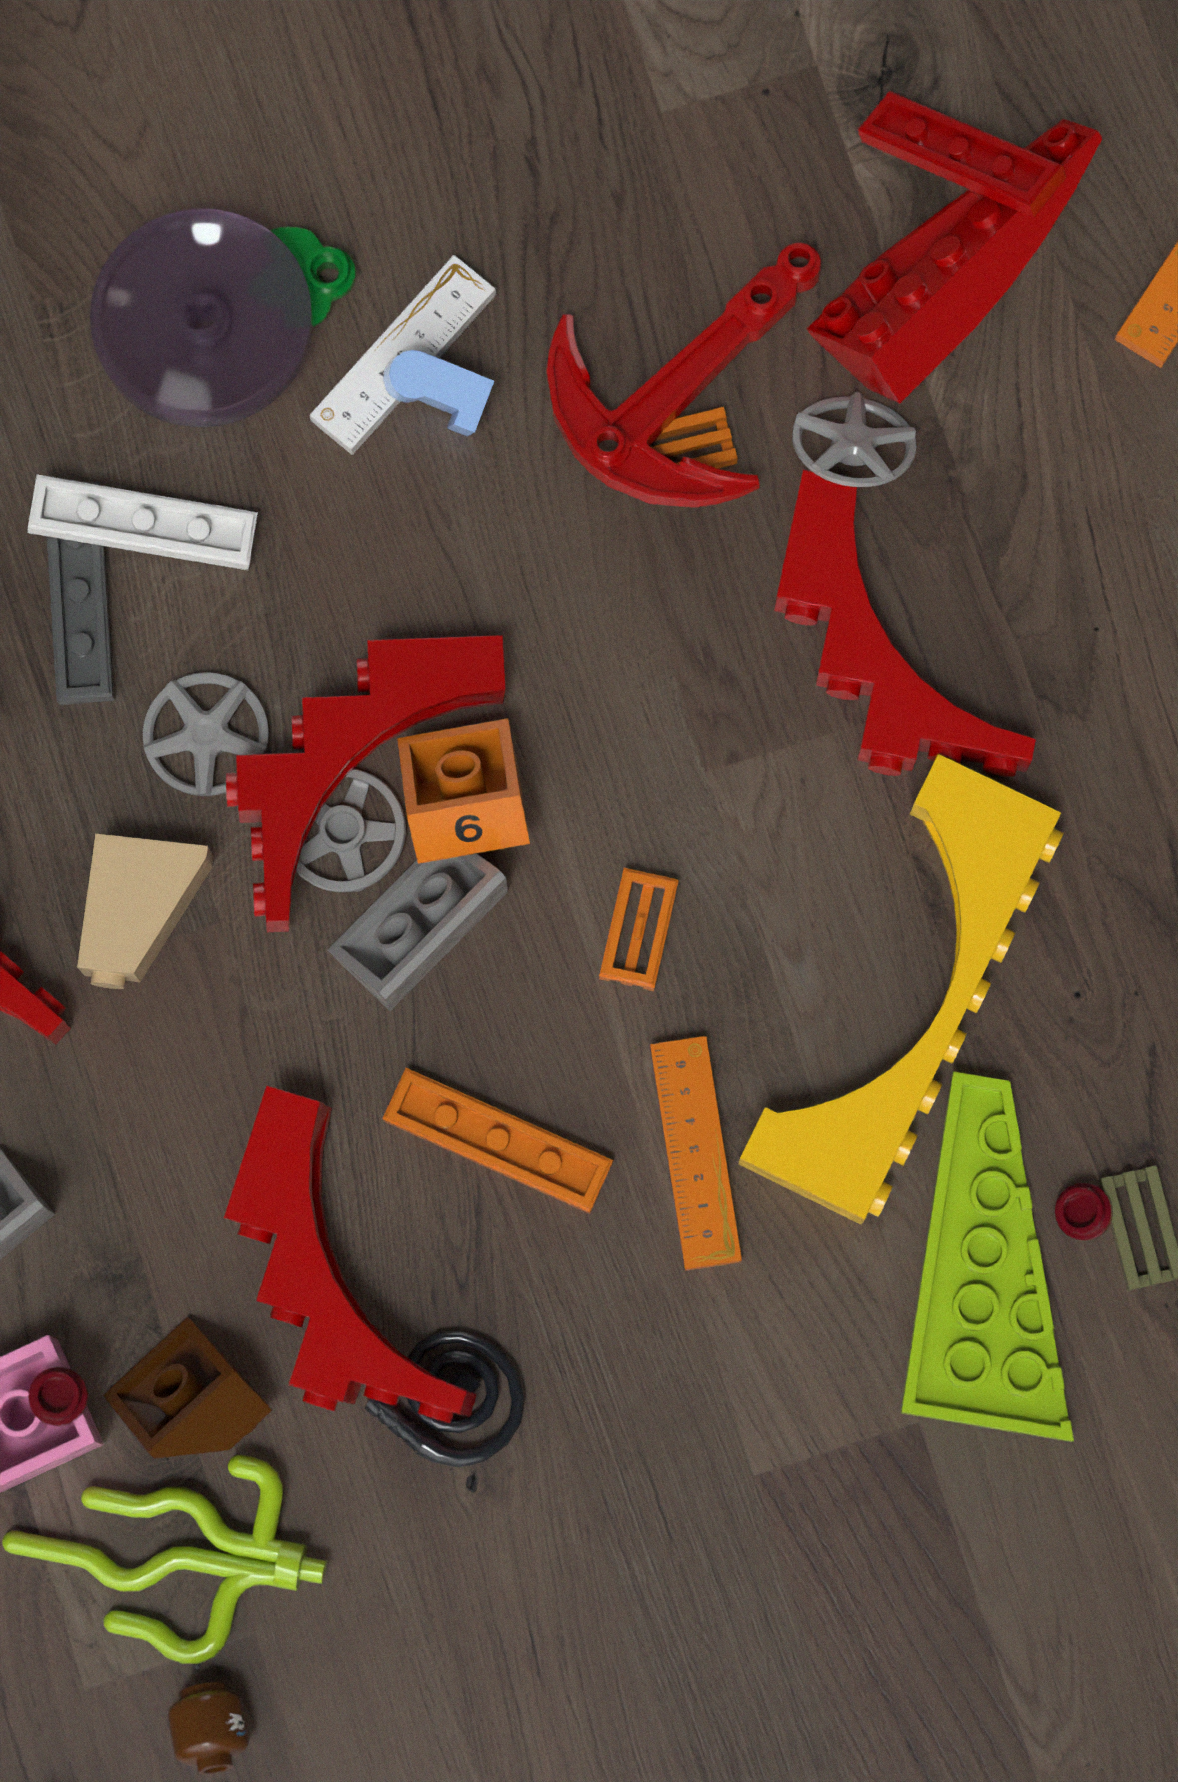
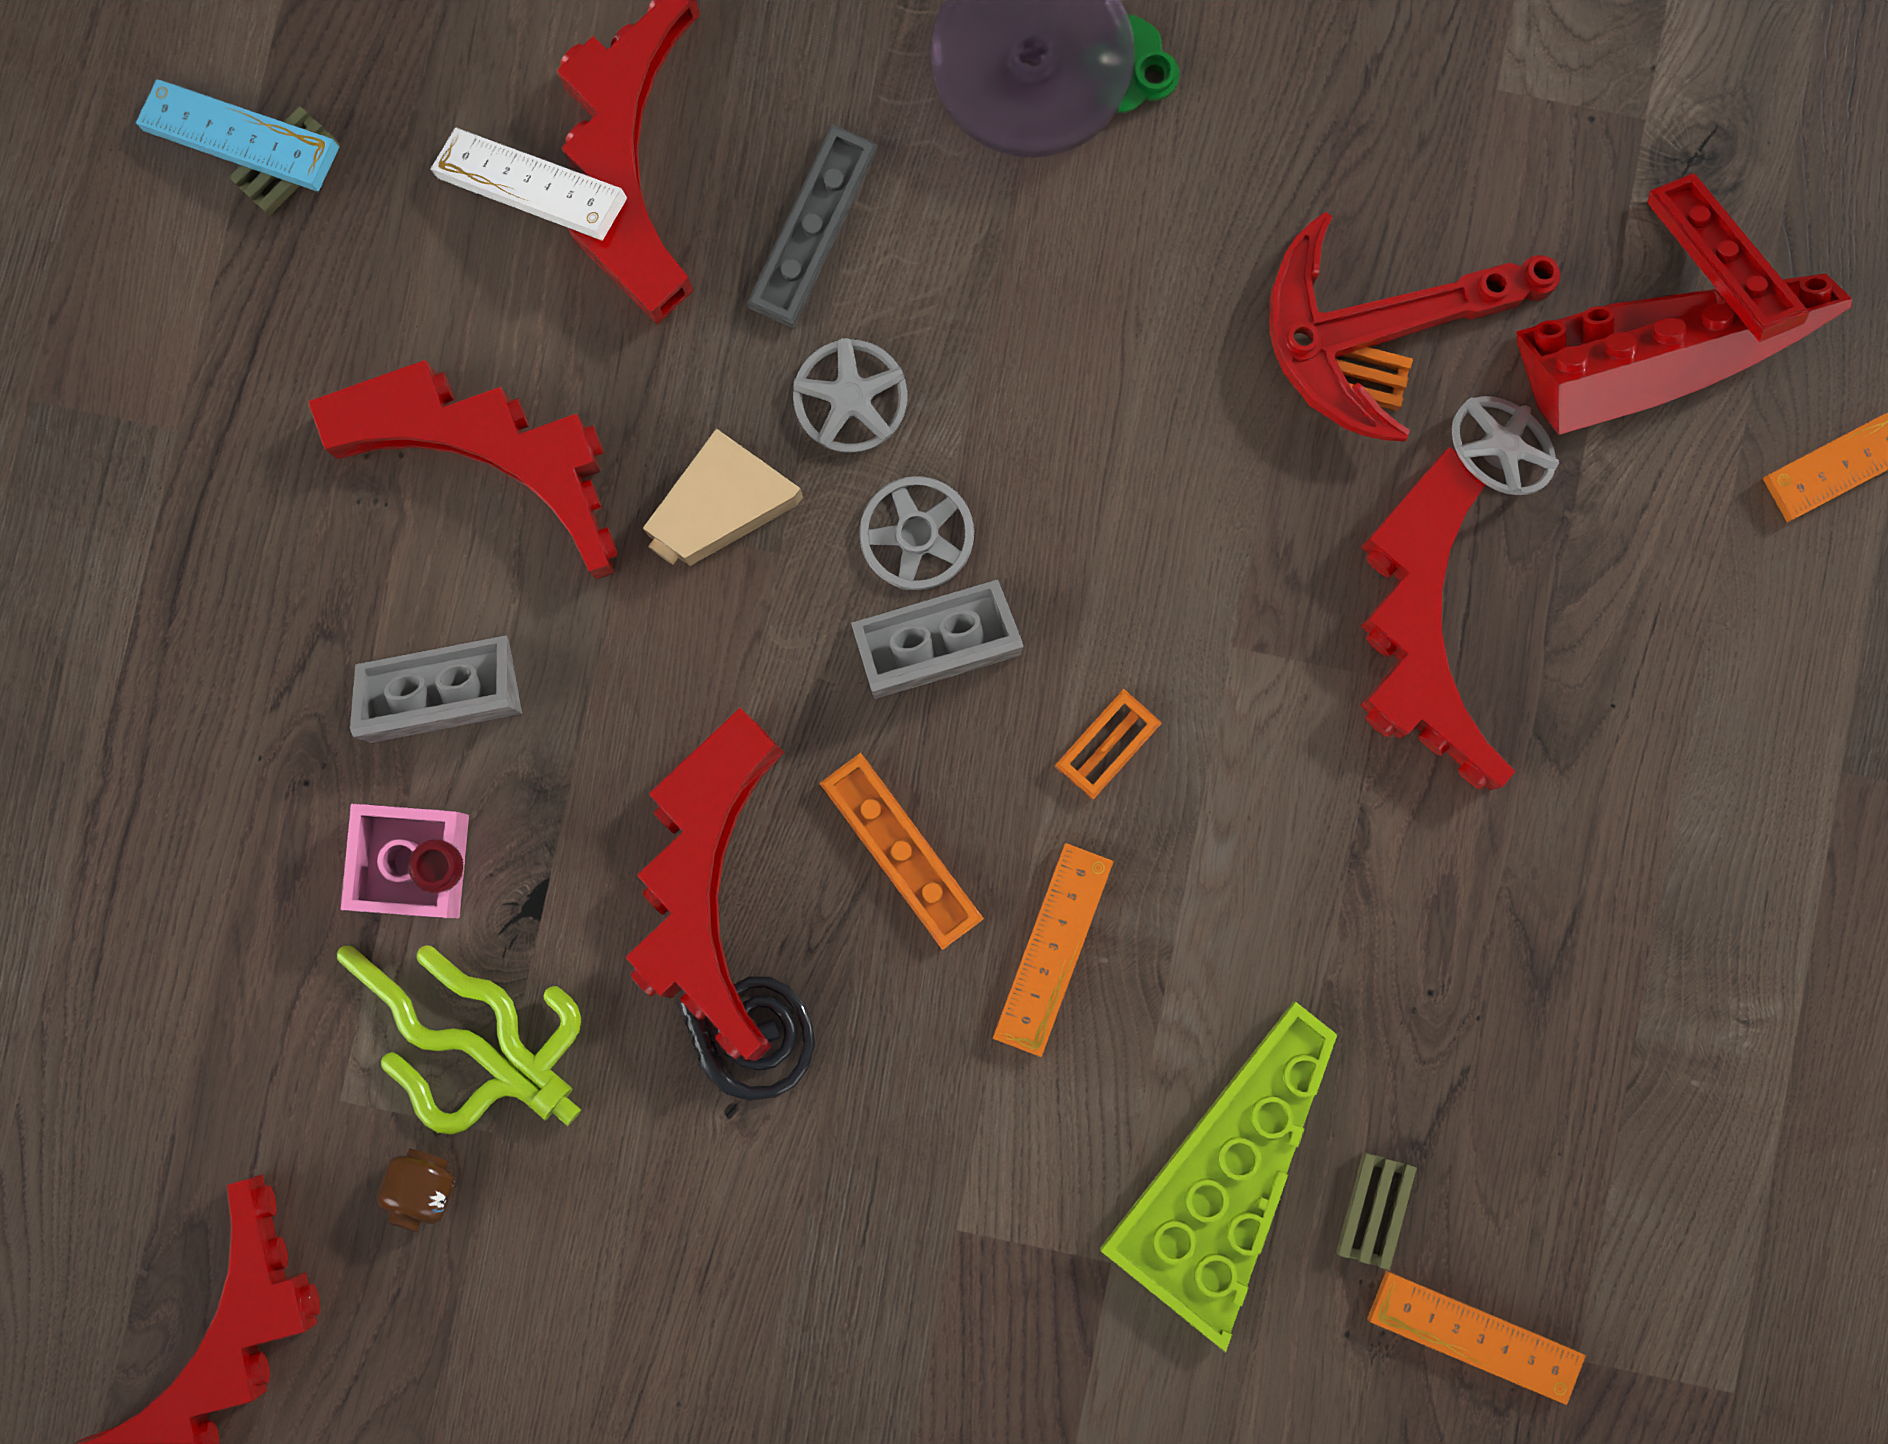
camera: 25 degrees right, 5 degrees up
(142, 522) = (893, 196): white tile -> none
(186, 1397) = (542, 919): reddish brown slope -> none
(406, 686) = (1030, 446): red arch -> none
(426, 325) = (1178, 174): white tile -> none
(441, 385) = (1194, 215): light blue leg -> none
(462, 791) = (1028, 556): orange brick -> none
(989, 851) = (1424, 841): yellow arch -> none
(1084, 1211) = (1337, 1172): dark red plate -> none

